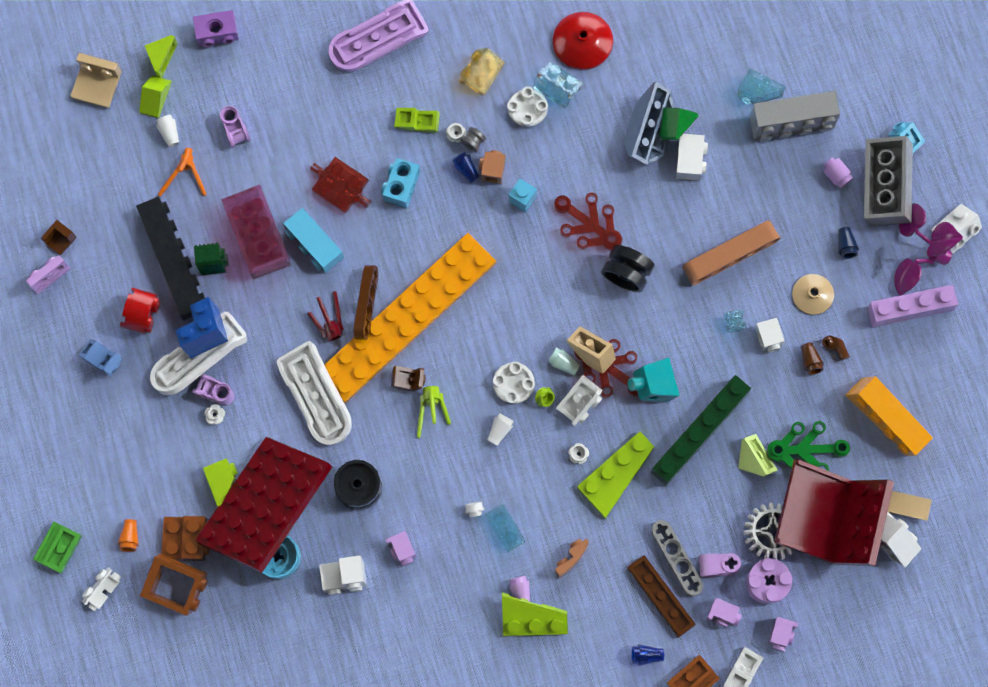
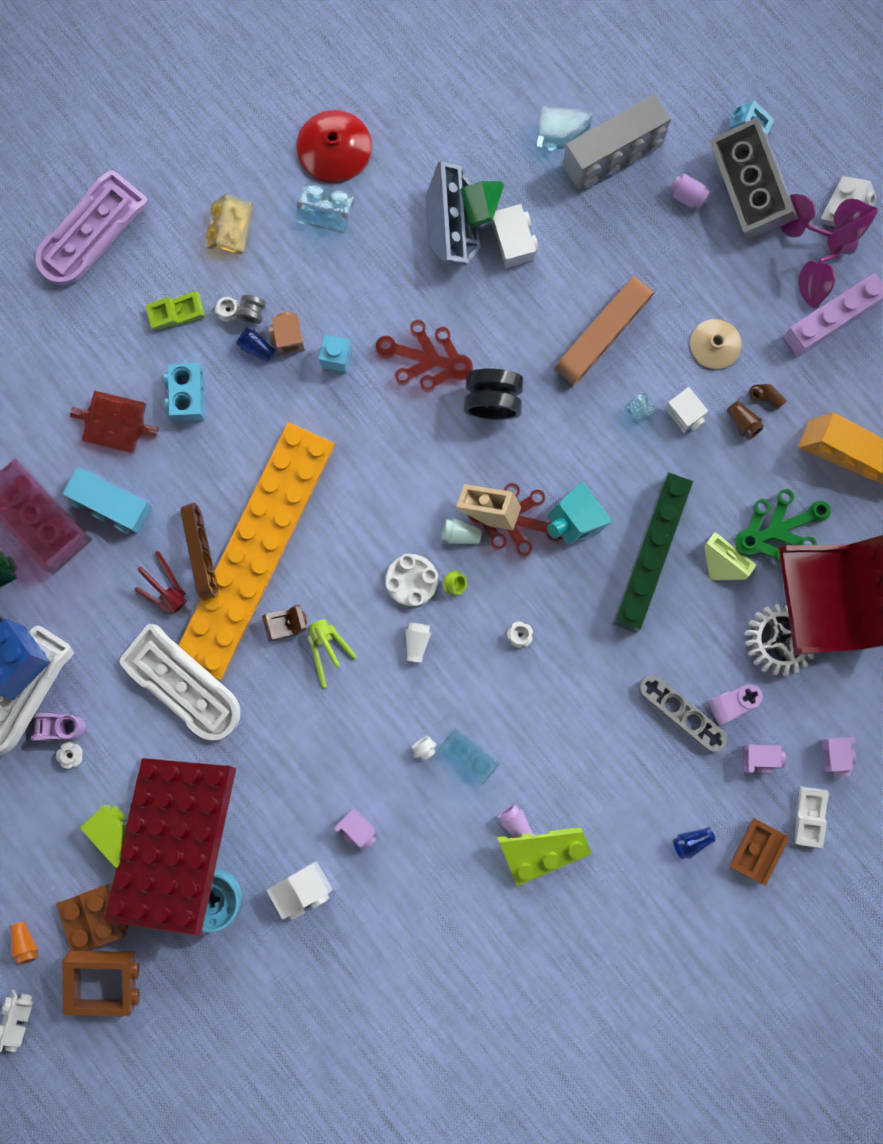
camera: 25 degrees left, 5 degrees up
(353, 473) = (267, 760): black wheel -> none
(527, 107) = (300, 248): white dish -> none
(576, 552) = (565, 752): nougat slope -> none
(579, 400) = (498, 571): white bracket -> none
(612, 478) = (571, 647): lime wing -> none
(661, 596) = (682, 765): reddish brown tile -> none
(768, 569) = (814, 693): lavender brick -> none
(847, 244) = (733, 270): dark blue cone -> none

